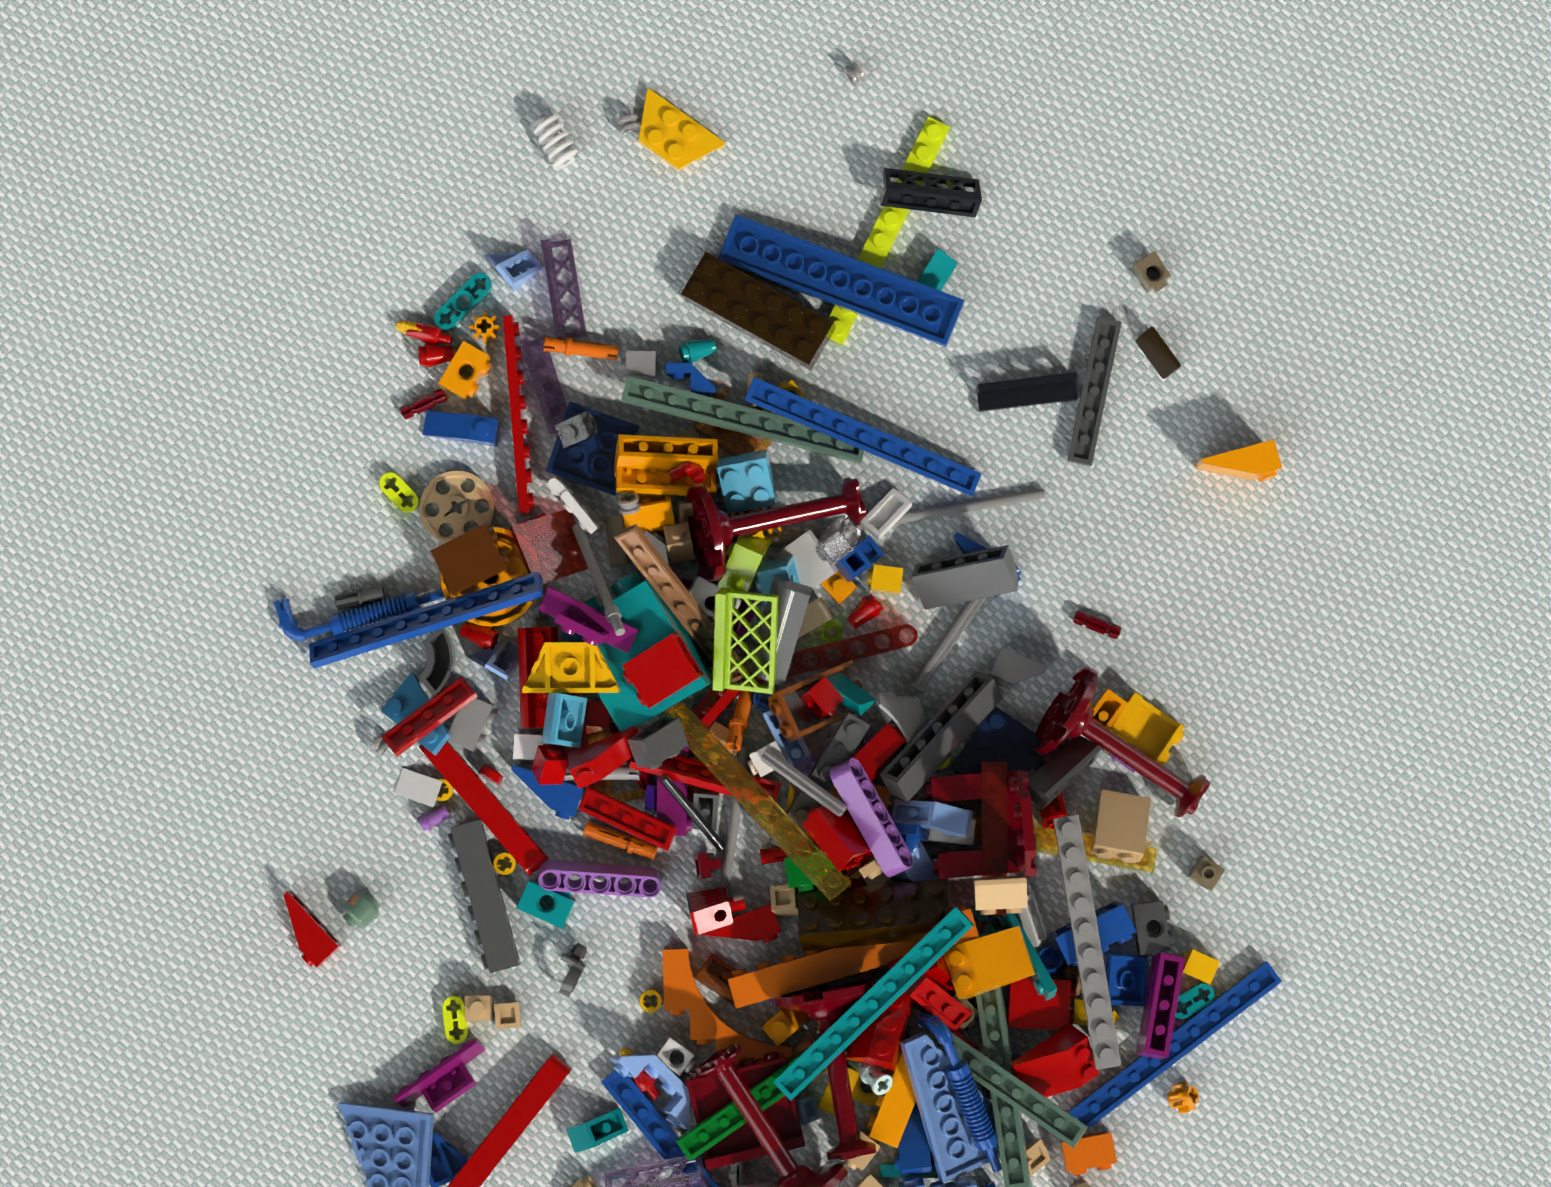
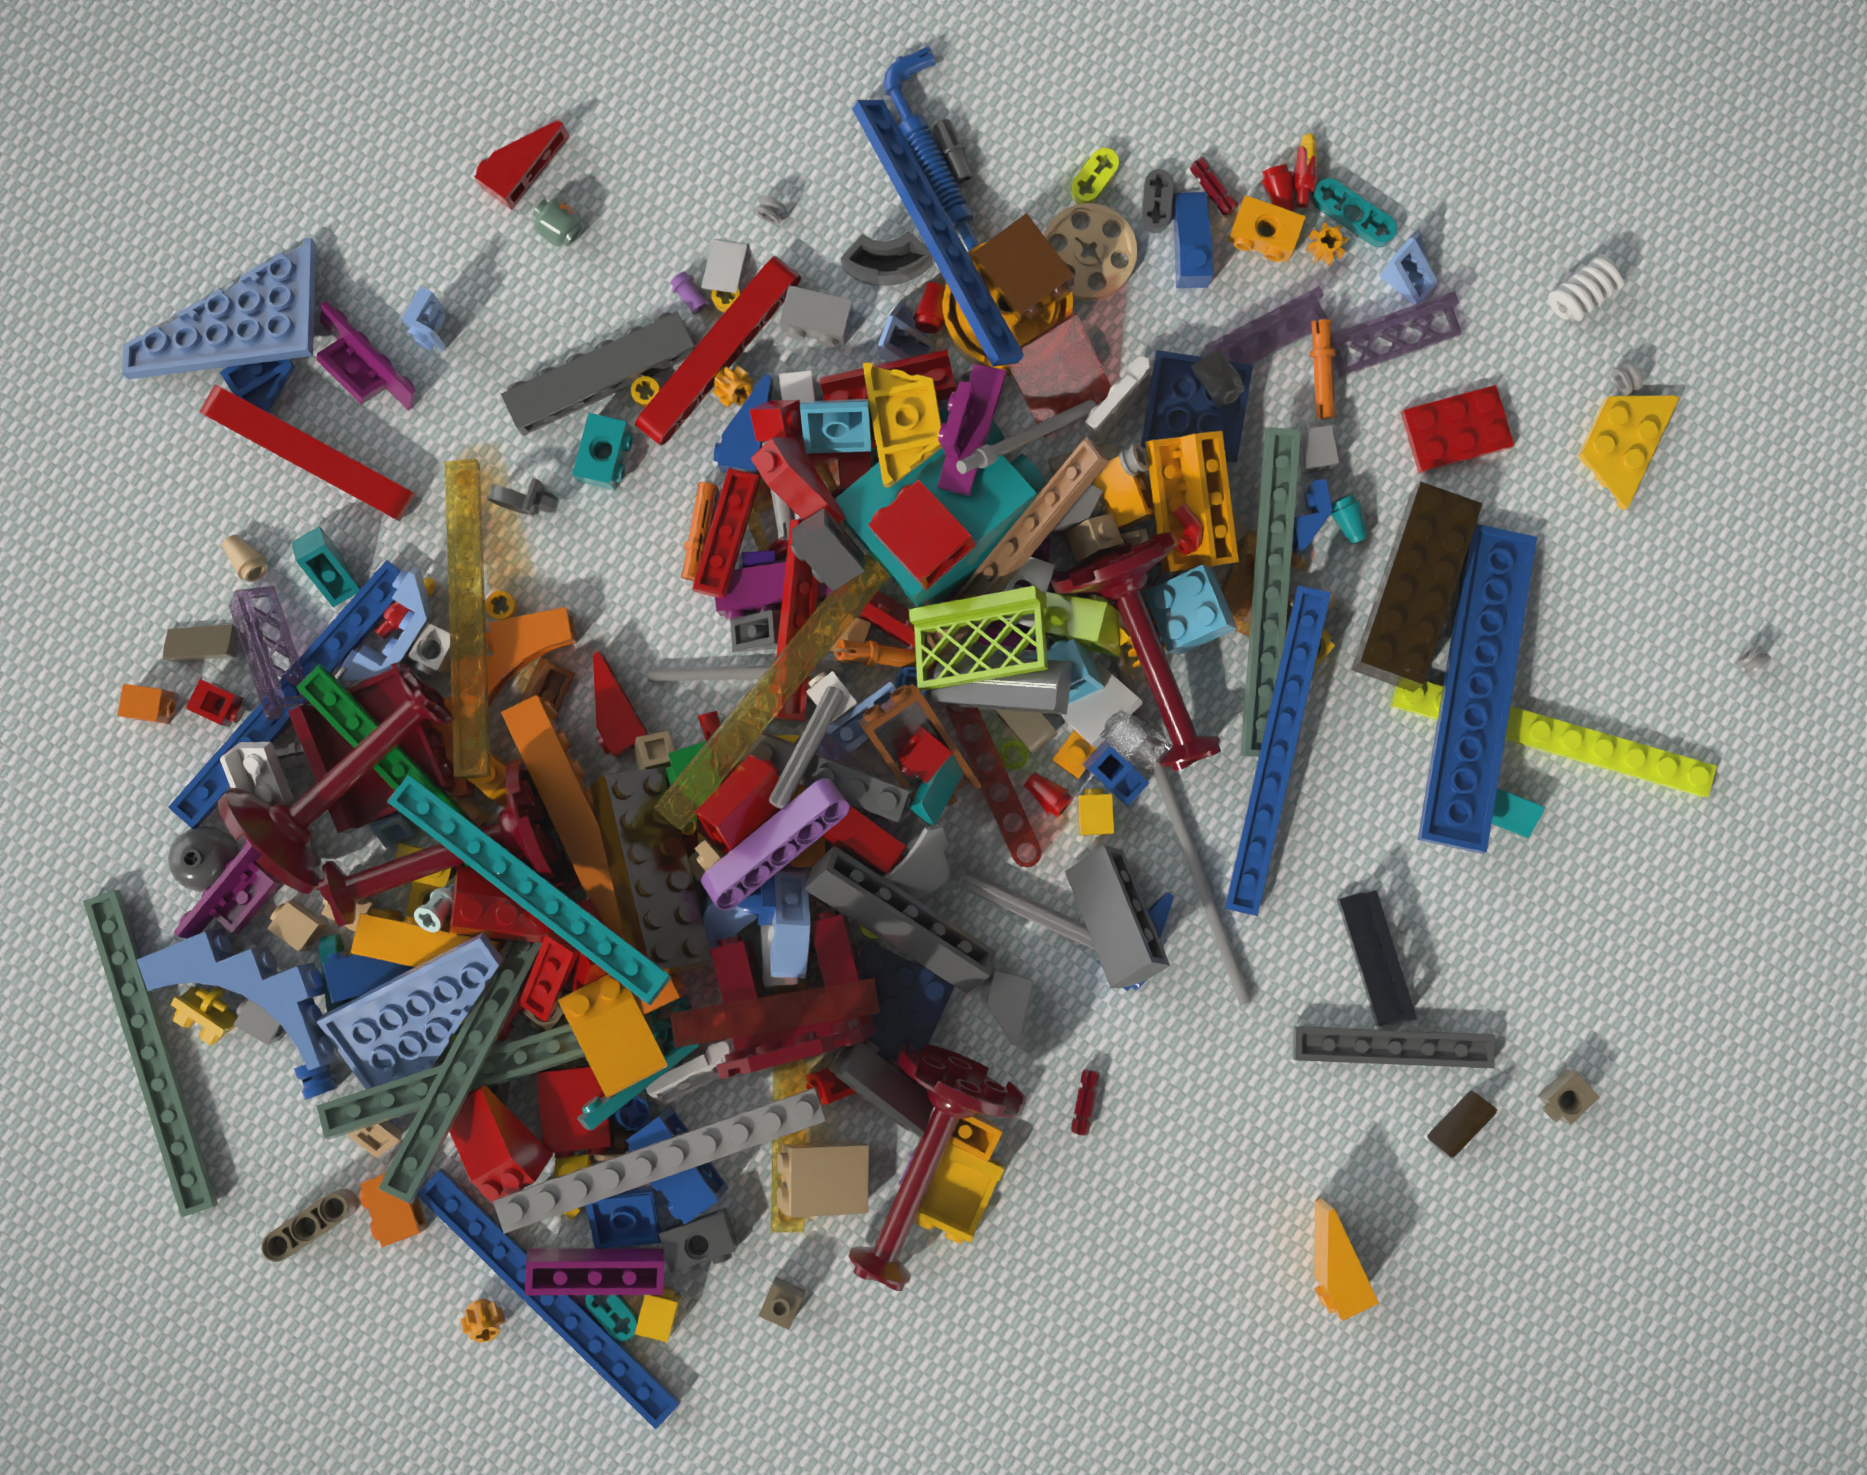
camera: 80 degrees right, 0 degrees up
(407, 700) = (812, 246): dark azure wing -> none
(418, 1021) = (424, 317): none -> light blue bracket
(428, 443) = (1164, 201): none -> dark grey beam
(429, 716) = (813, 256): red tile -> none
(449, 1020) = (441, 372): neon yellow beam -> none
(478, 1007) = (456, 389): tan brick -> none
(490, 774) = (755, 353): red tile -> none
(507, 1015) = (454, 429): tan plate -> none
(514, 795) = (733, 386): none -> light orange gear
(517, 404) = (1209, 308): red plate -> none
(609, 886) = (633, 500): medium lavender beam -> none
(642, 256) = (1457, 429): none -> red plate
(658, 1024) = (467, 620): none -> clear yellow plate
(692, 812) = (748, 613): black bar -> none
(704, 865) = (684, 645): dark red tile -> none
(712, 909) = (626, 661): red torso -> none
(886, 513) = (1181, 799): white tile -> none
(931, 196) = (1612, 785): black fence -> none
(965, 1090) = (439, 1029): blue piece -> none
(1000, 893) = (698, 1033): tan slope -> none

